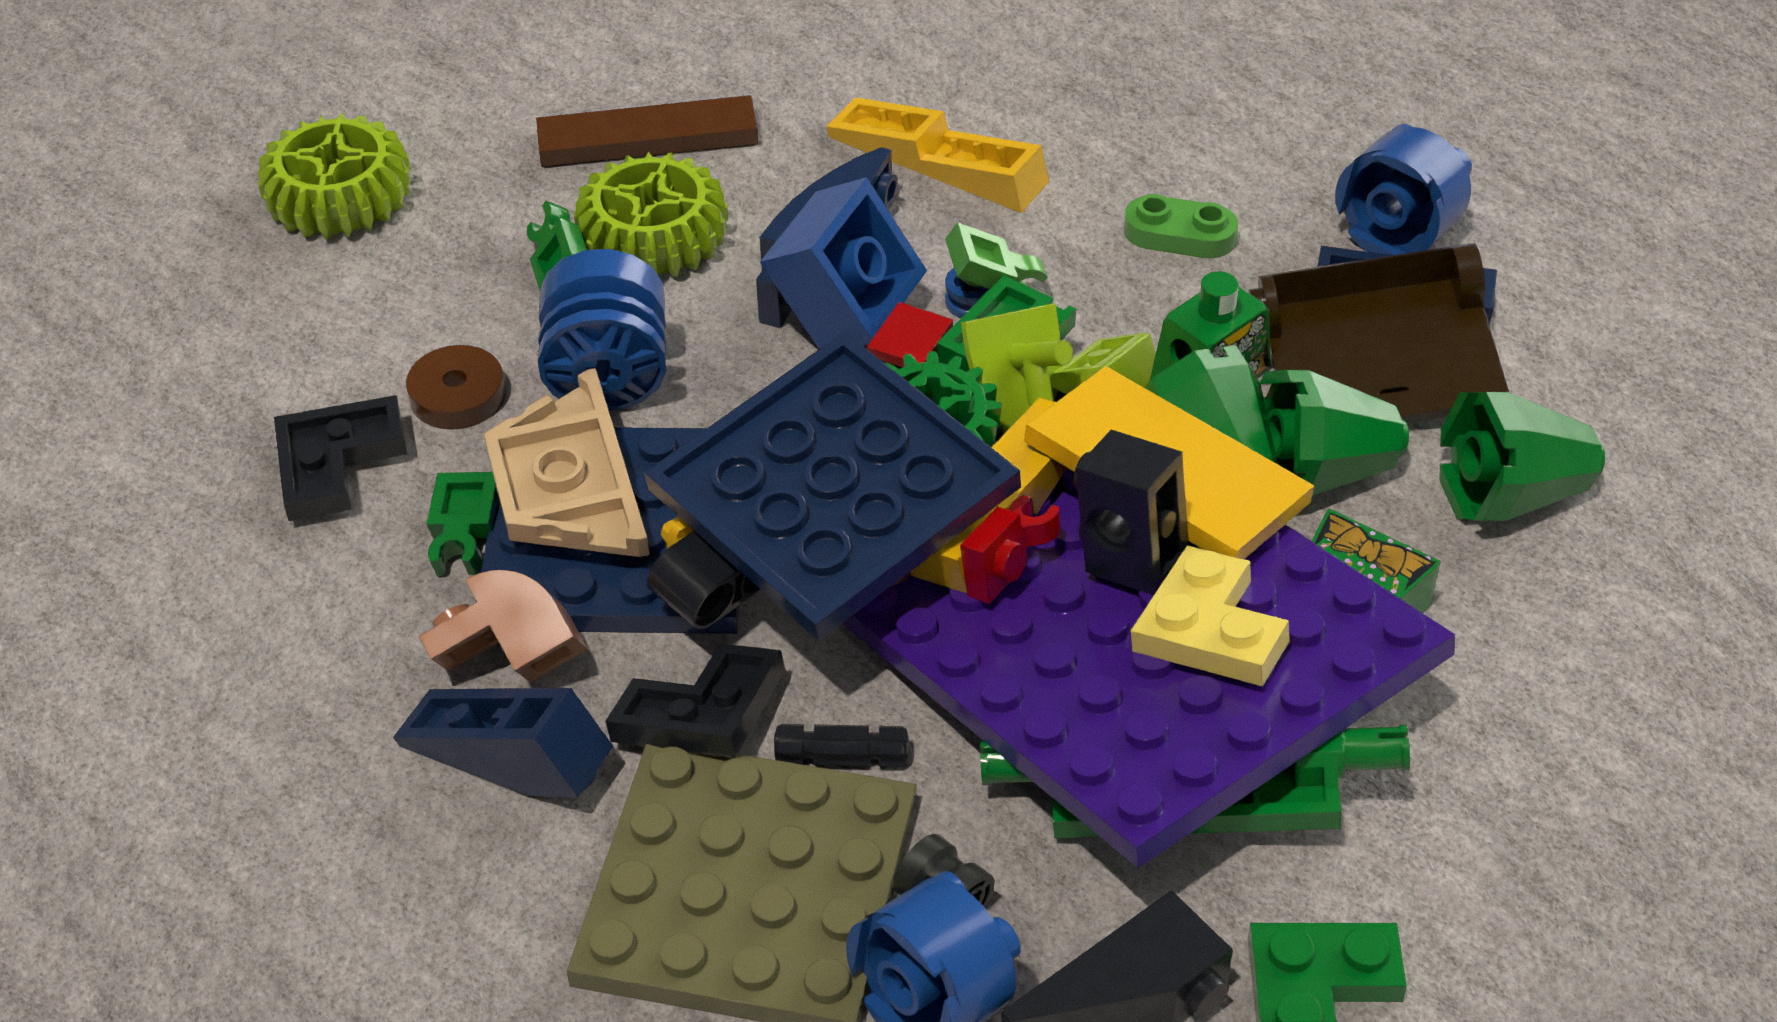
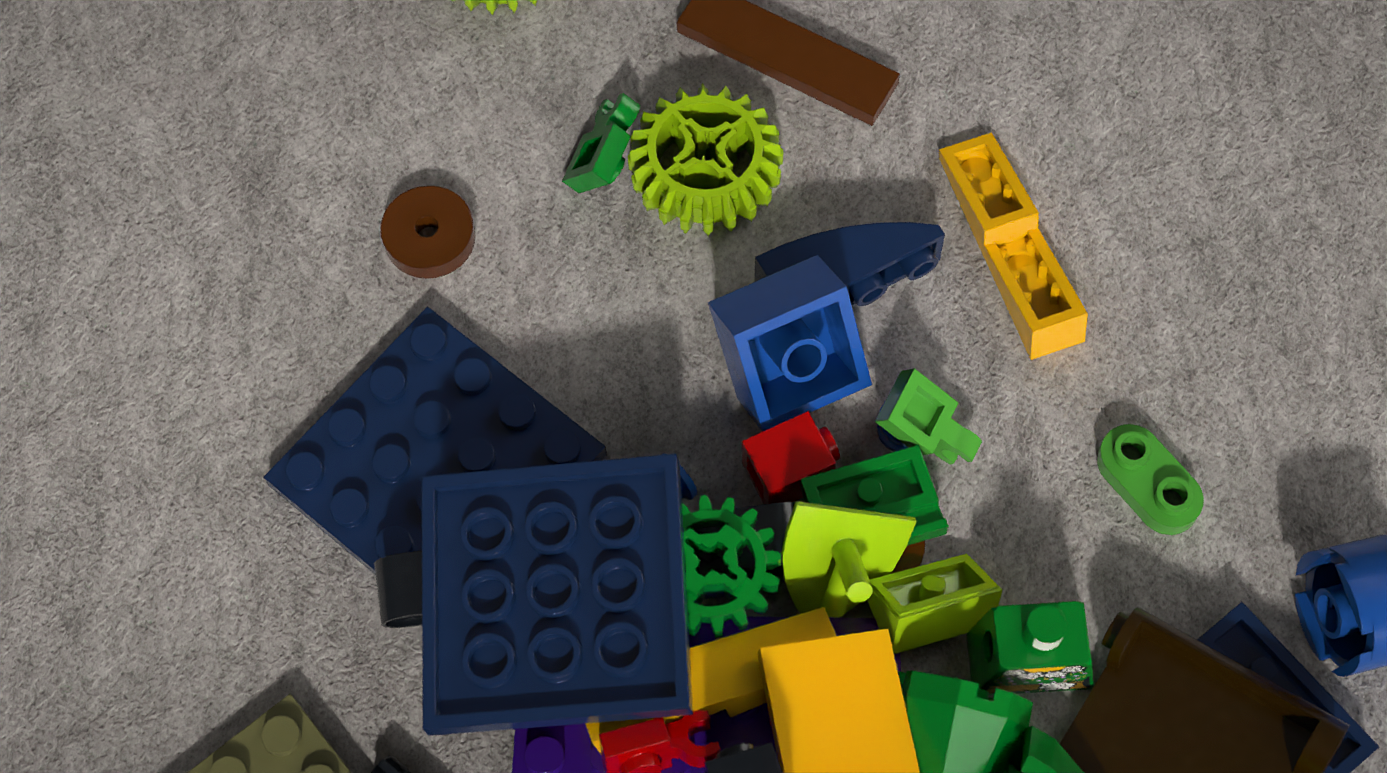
camera: 40 degrees right, 20 degrees up
(320, 444) = (285, 224): black plate -> none
(459, 513) = (329, 372): green plate -> none
(508, 611) = (275, 518): nougat brick -> none
(510, 736) = (192, 617): dark blue slope -> none
(566, 475) = (411, 400): tan wing -> none
(604, 315) = (551, 271): blue wheel -> none
(705, 716) = (346, 709): black plate -> none

